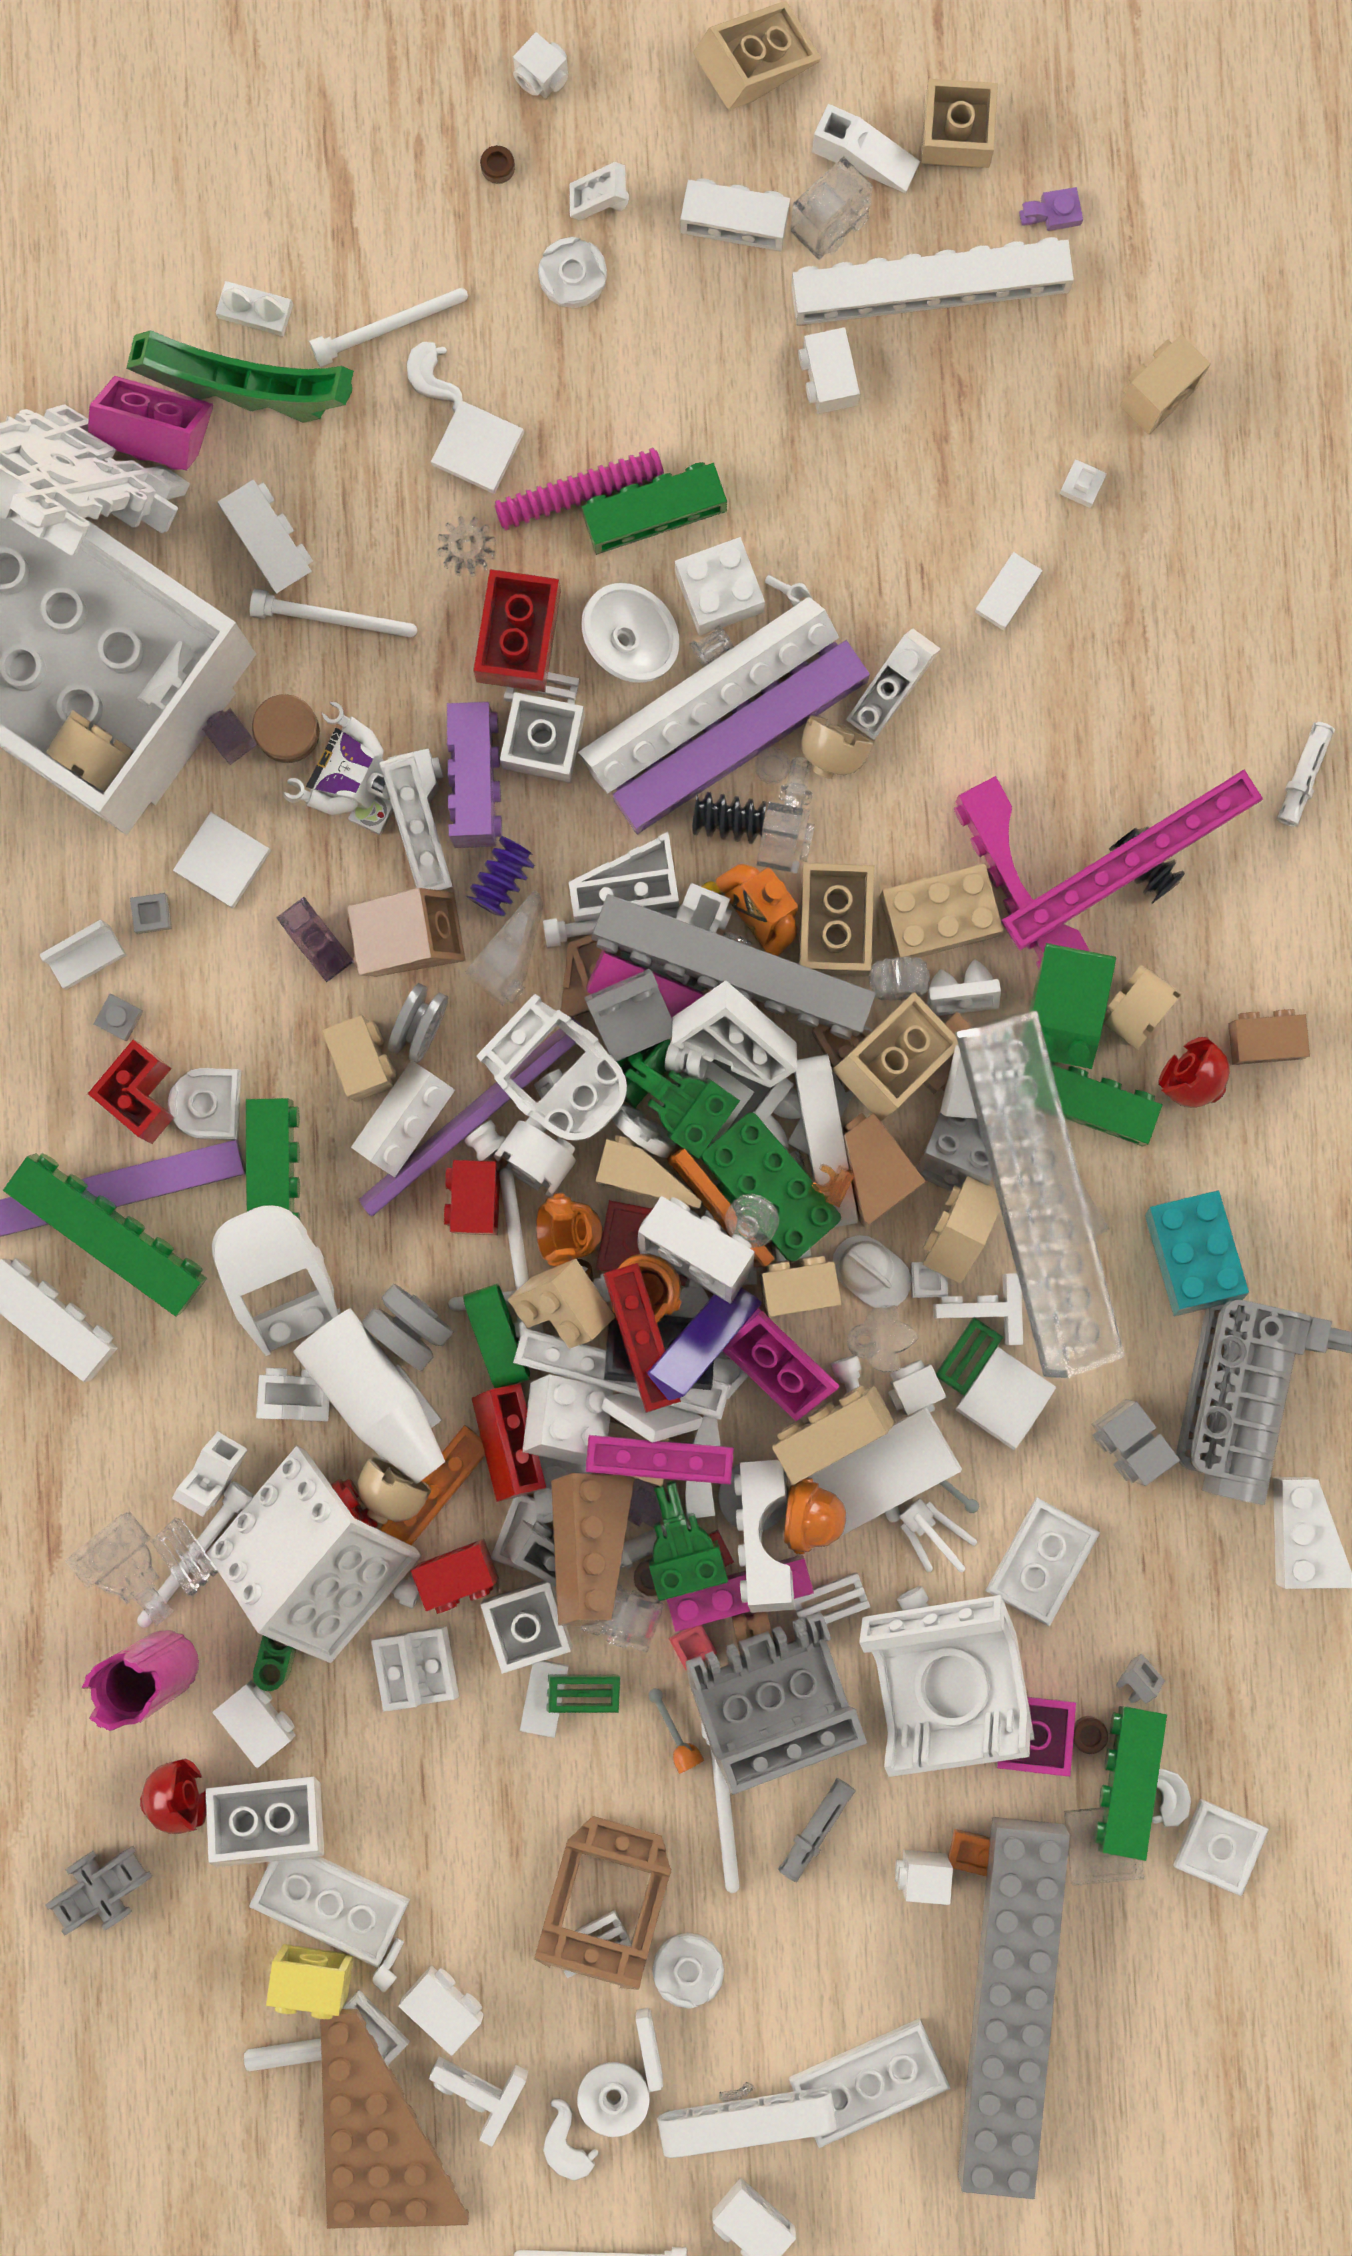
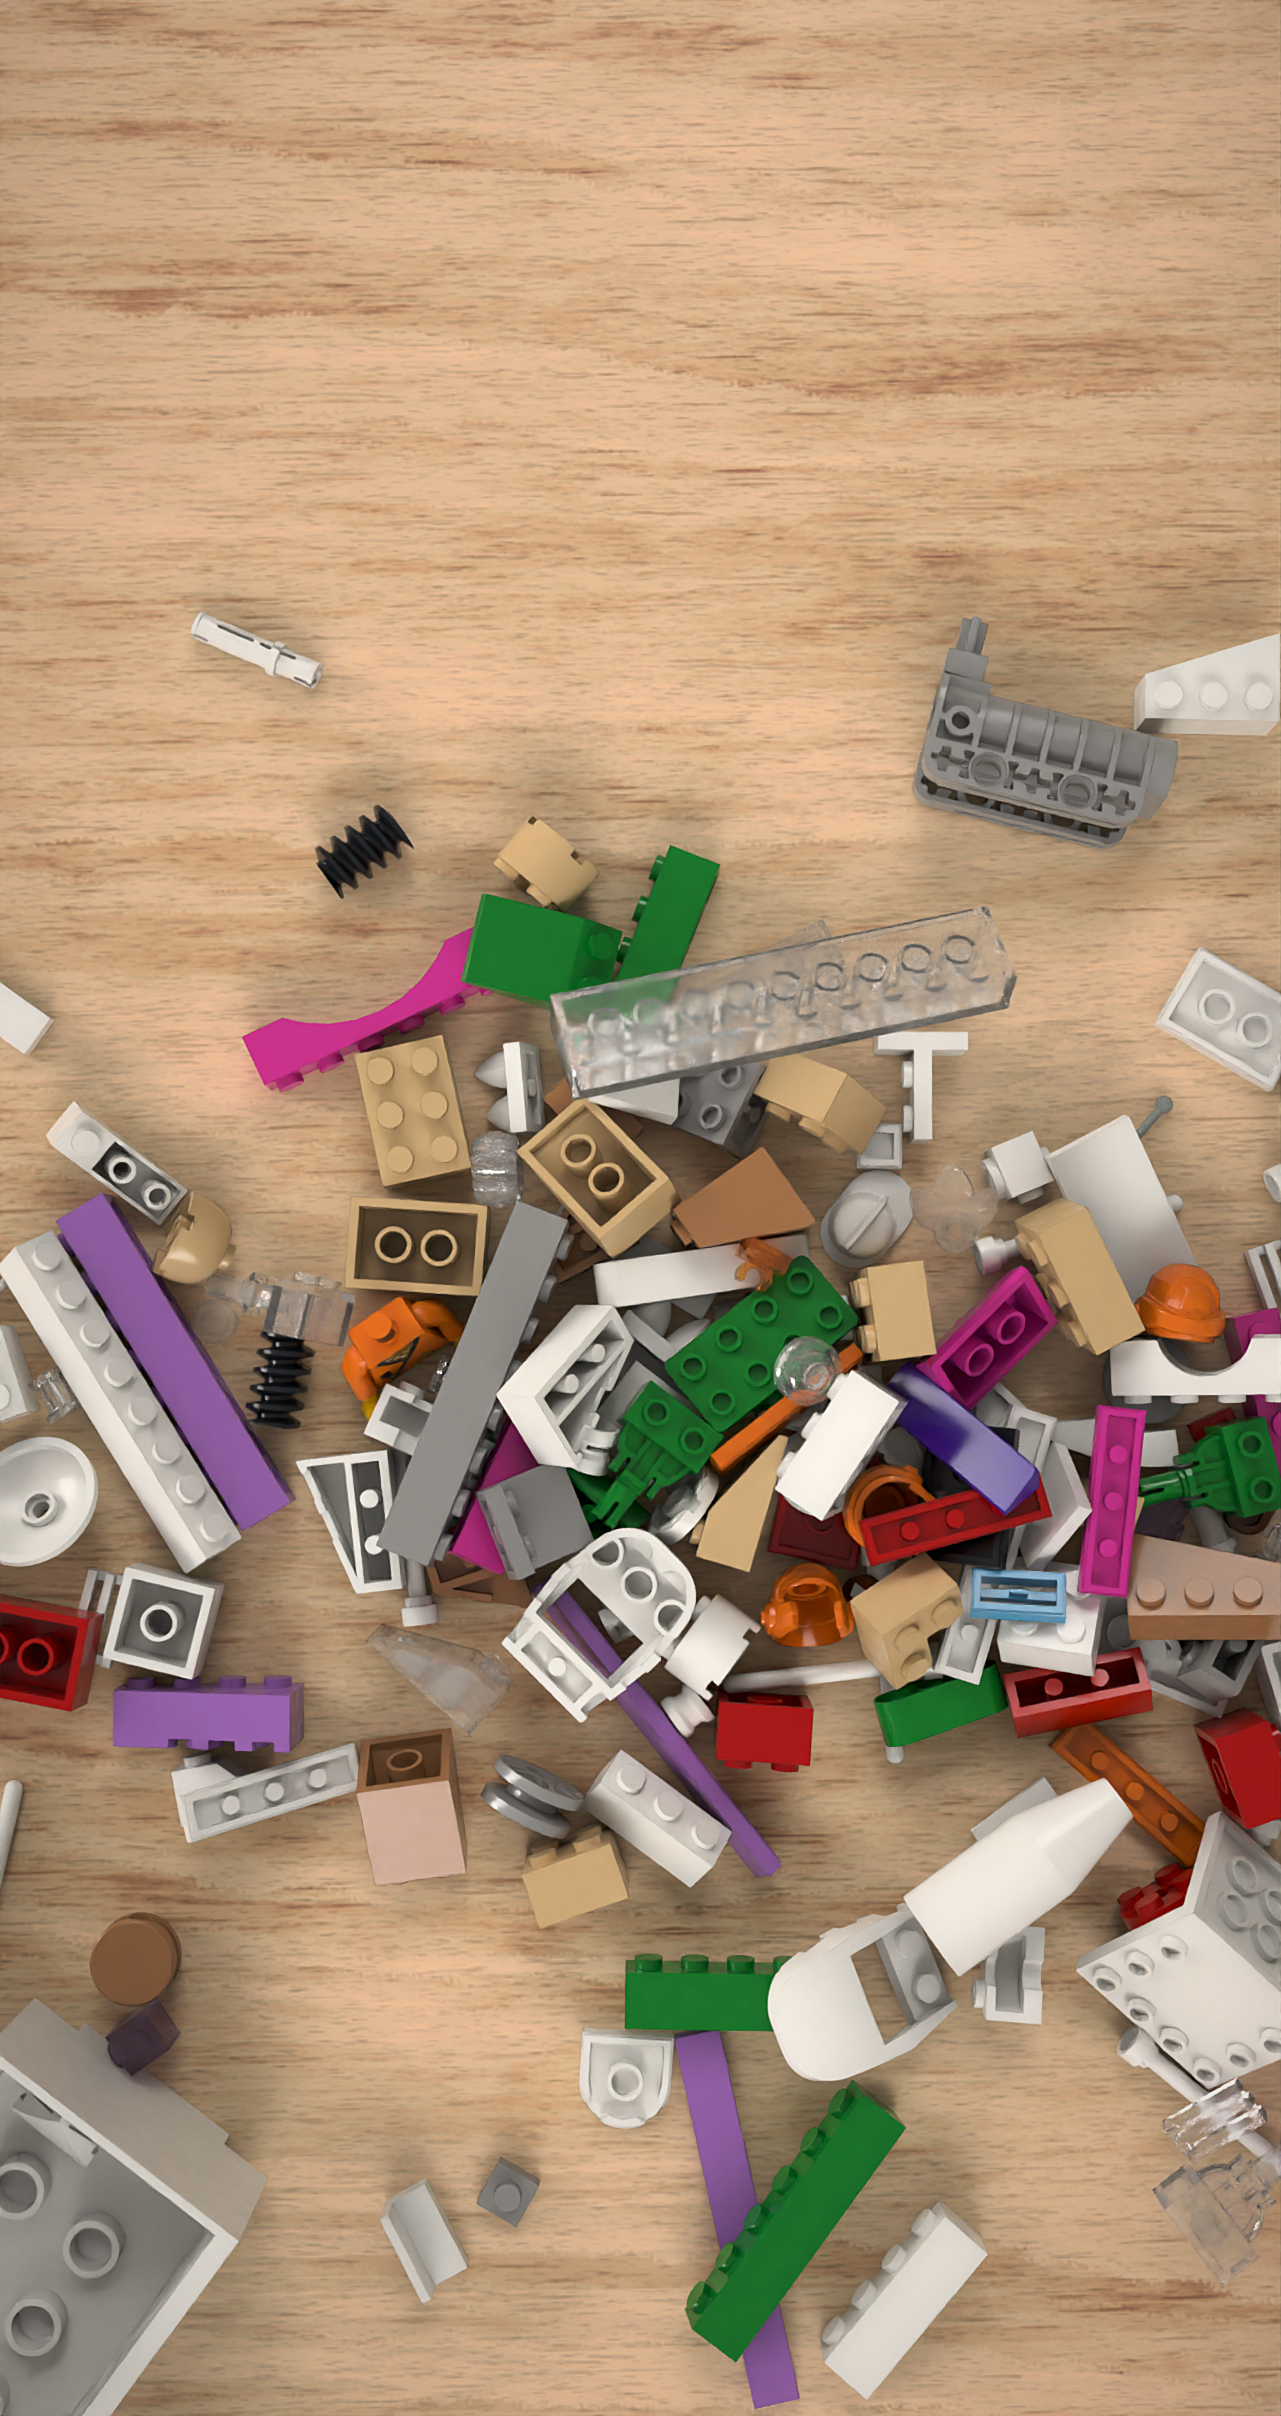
camera: 90 degrees left, 0 degrees up
(89, 751) = (151, 2245): tan brick -> none
(126, 1091) = (606, 2185): red brick -> none
(150, 913) = (373, 2146): light grey plate -> none
(211, 1474) = (1112, 2085): white brick -> none
(222, 860) = (306, 2048): white tile -> none
(315, 939) = (415, 1928): slope -> none
(346, 772) = (195, 1882): white torso -> none
(374, 817) = (251, 1848): tile -> none
(390, 1492) = (1143, 1852): tan cylinder -> none
(403, 1332) = (928, 1821): light grey wheel -> none
(501, 876) = (344, 1679): dark purple piece -> none
(578, 1390) = (1018, 1611): none -> dark azure tile
(919, 1519) = (1180, 1171): white plant -> none
(985, 1330) = (965, 1114): green tile -> none
(1006, 1398) = (1031, 1056): white slope -> none
(1129, 1437) = (1085, 902): light grey piece -> none
(1132, 860) = (358, 868): dark pink tile -> none
(1196, 1253) = (858, 811): teal brick -> none
(1197, 1076) = (633, 801): red cylinder -> none
(1269, 1038) = (589, 710): medium nougat brick -> none

